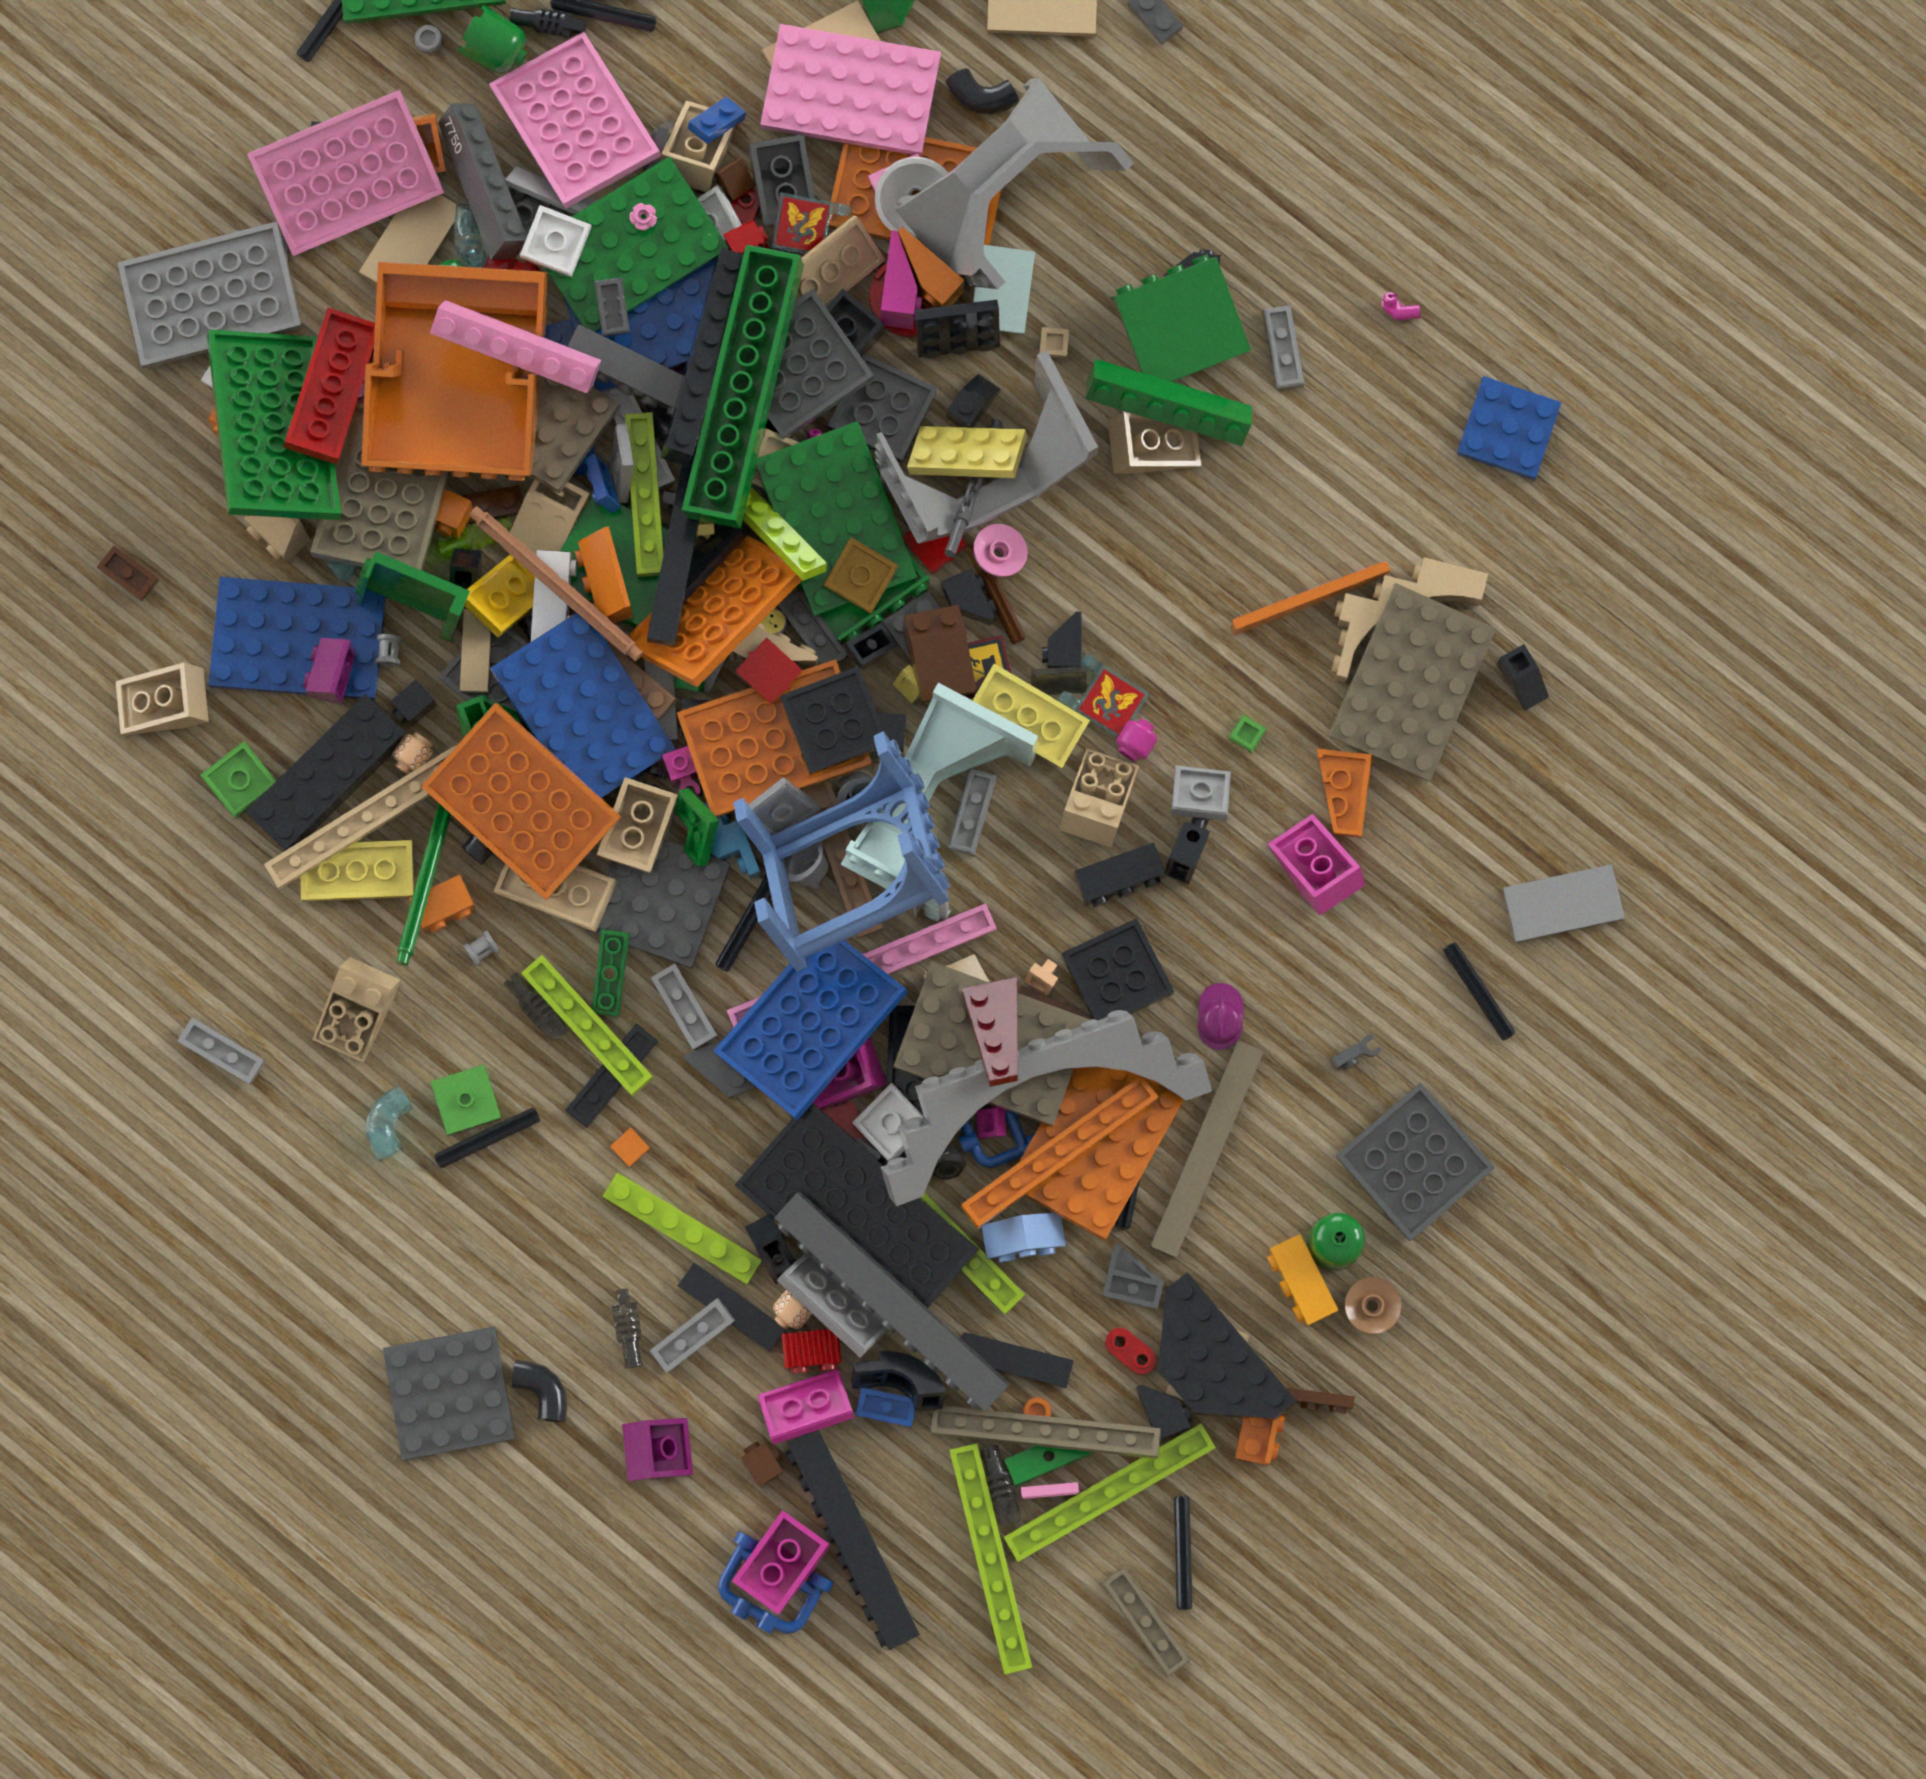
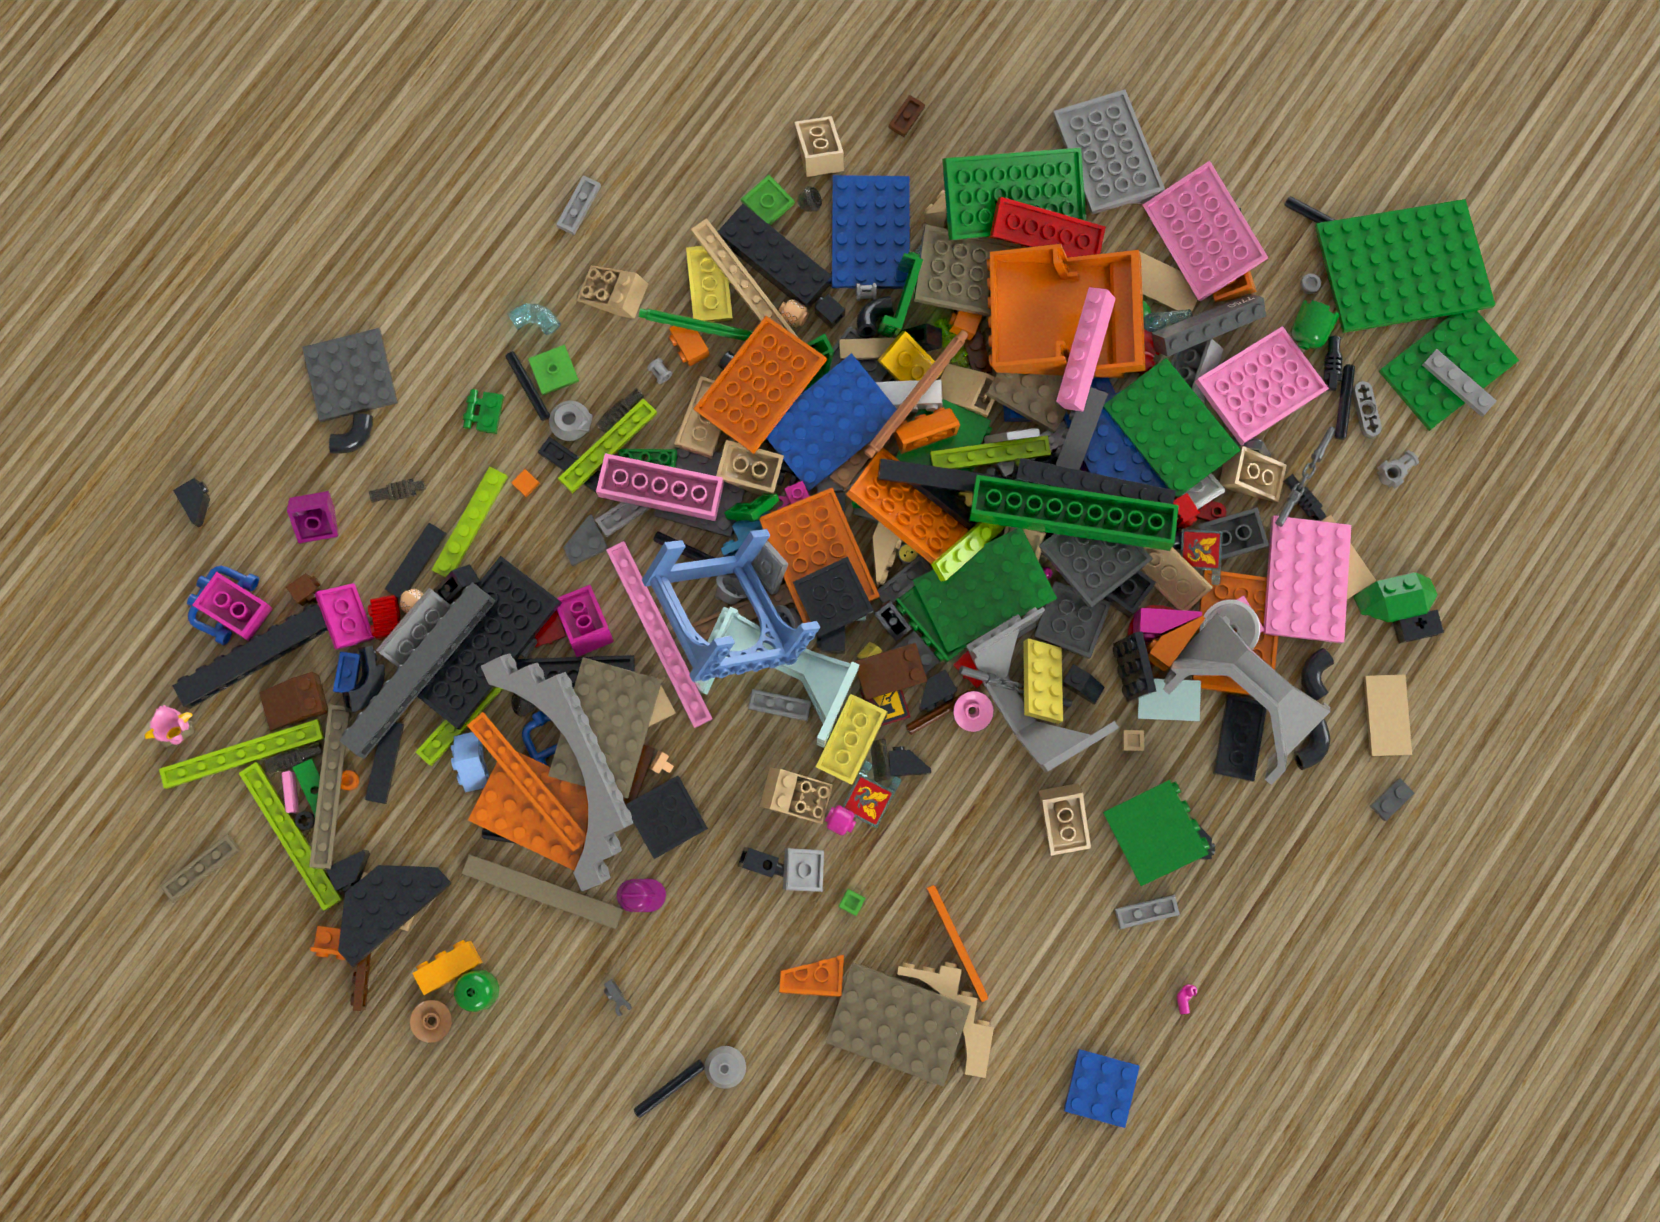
camera: 85 degrees right, 0 degrees up
(244, 719) = (809, 199): none -> clear smoke cone
(330, 670) = (845, 251): magenta slope -> none
(424, 647) = (871, 313): none -> black cylinder
(521, 1194) = (489, 413): none -> green plate
(544, 1078) = (570, 420): none -> light grey piece
(555, 241) = (1168, 374): white tile -> none
(602, 482) = (995, 424): blue plate -> none
(612, 307) = (1123, 417): dark grey plate -> none
(618, 1620) = (194, 500): none -> black slope
(649, 221) = (1193, 438): bright pink plate -> none
(657, 950) = (660, 487): none -> bright pink brick
(692, 1335) = (392, 534): light grey plate -> none
(716, 120) = (1273, 485): blue plate -> none
(735, 93) = (1294, 495): none -> dark grey piece
(735, 179) = (1230, 501): reddish brown brick -> none
(736, 80) = (1307, 501): none -> black hinge
(769, 670) = (866, 548): red piece -> none
(810, 1025) = (610, 598): blue plate -> none
(860, 575) = (943, 610): pearl gold tile -> none
(881, 1121) = (550, 657): white tile -> none
(921, 1485) = (294, 701): none -> reddish brown slope
(946, 1656) = (170, 726): none -> bright pink hair
(991, 1123) = (550, 733): dark pink plate -> none
(994, 1025) = (615, 725): wing -> none
(1060, 203) = (1240, 738): none -> black tile
(1083, 105) = (1316, 749): none -> black cylinder
(1096, 1477) = (300, 816): none -> black bush
(1120, 875) = (738, 814): black brick -> none
(1128, 1353) = (393, 845): red plate -> none
(1131, 1281) = (443, 842): dark grey wing -> none
(1168, 402) = (1094, 827): green brick -> none
(1183, 1552) = (249, 892): black axle -> none
(1317, 864) = (756, 960): dark pink slope -> none
(1414, 1162) = (538, 1047): dark grey plate -> none
(1455, 915) = (725, 1067): none -> light grey cone
(1523, 677) = (908, 1110): black slope -> none
(1563, 903) = (739, 1150): light grey tile -> none

